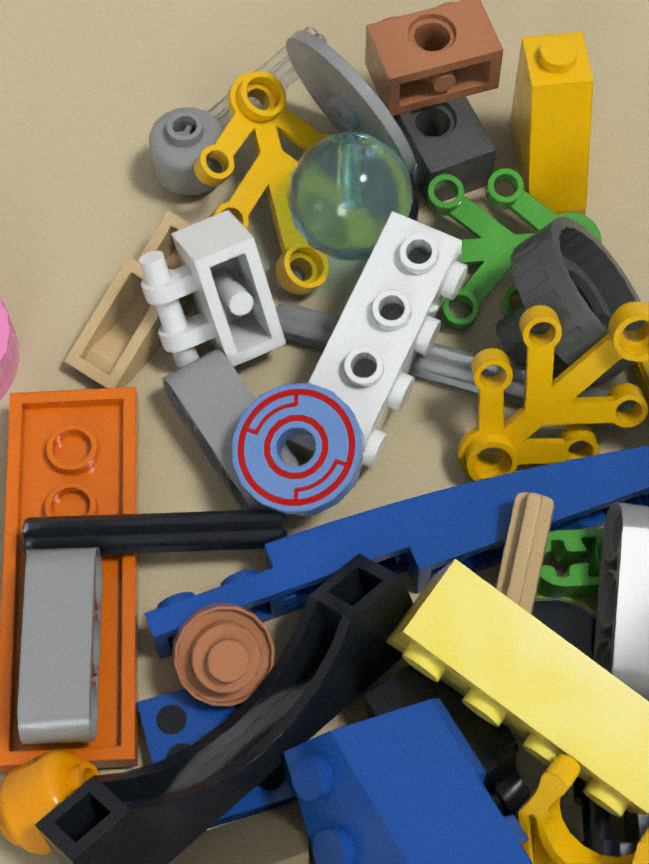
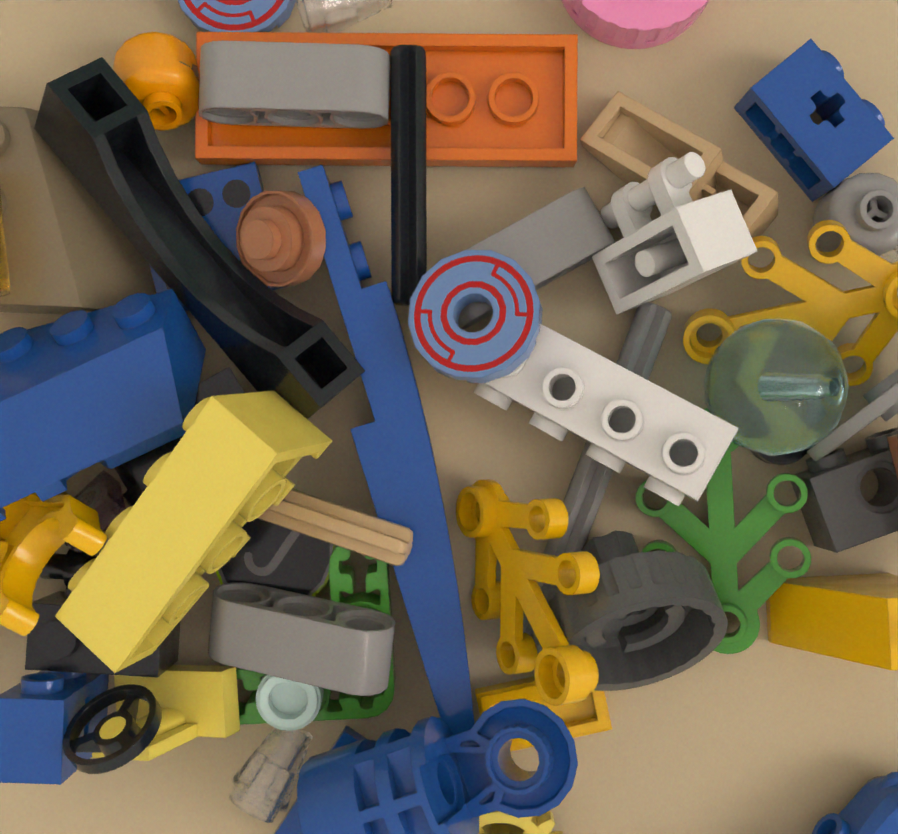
camera: 90 degrees right, 25 degrees up
(97, 196) = (811, 153): none -> blue brick

